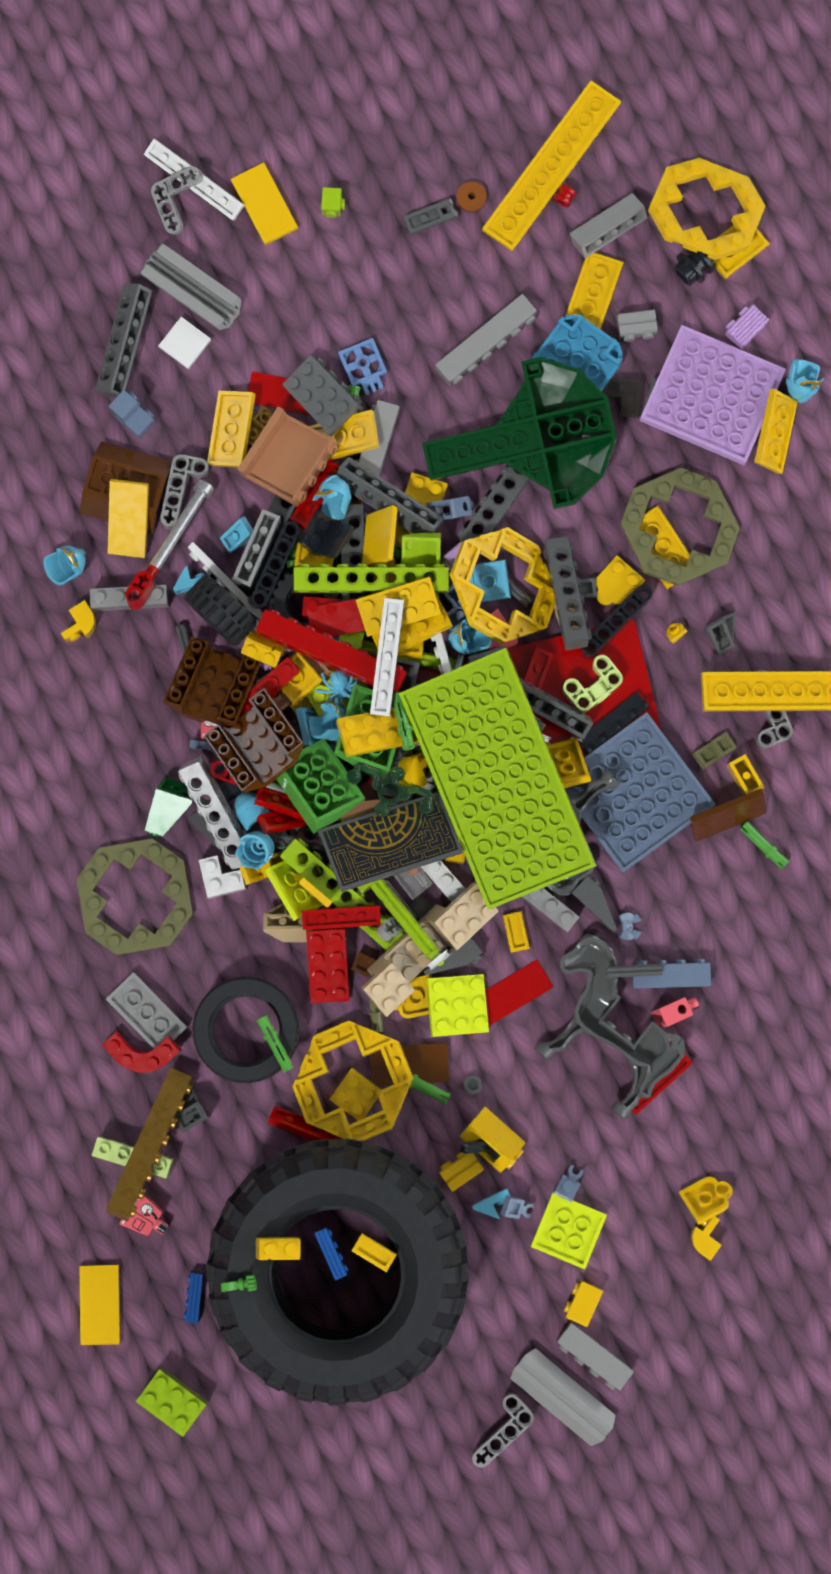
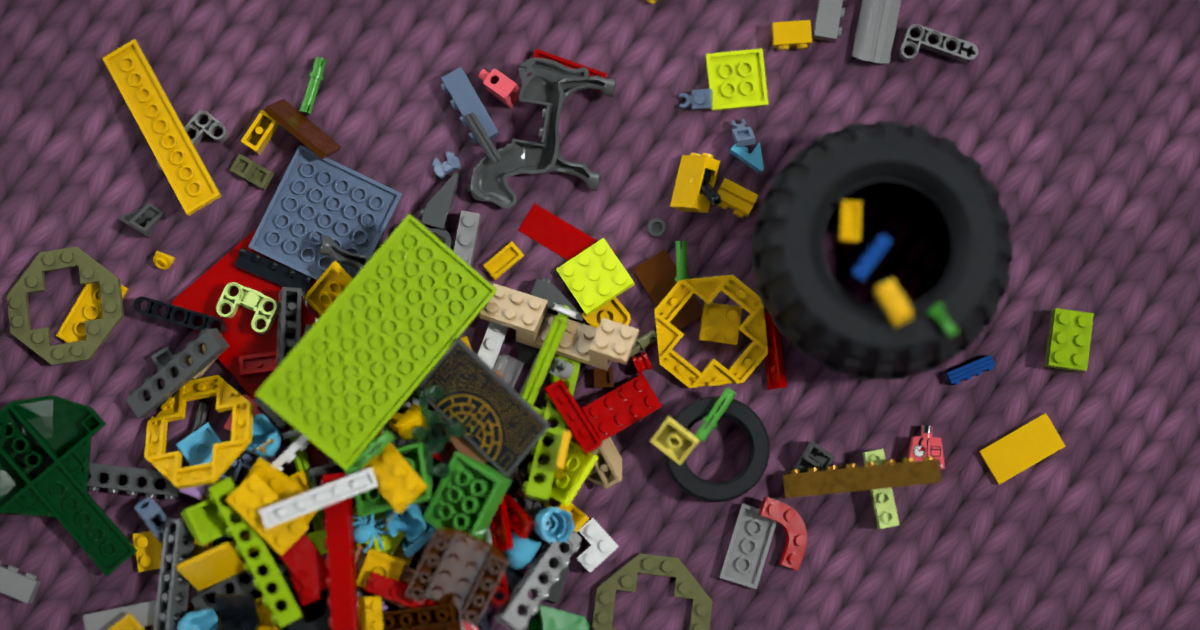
camera: 120 degrees left, 0 degrees up
(271, 995) = (674, 441): none -> light yellow slope
(358, 1005) = (642, 363): none -> red wheel
(617, 582) = (145, 335): yellow plate -> none

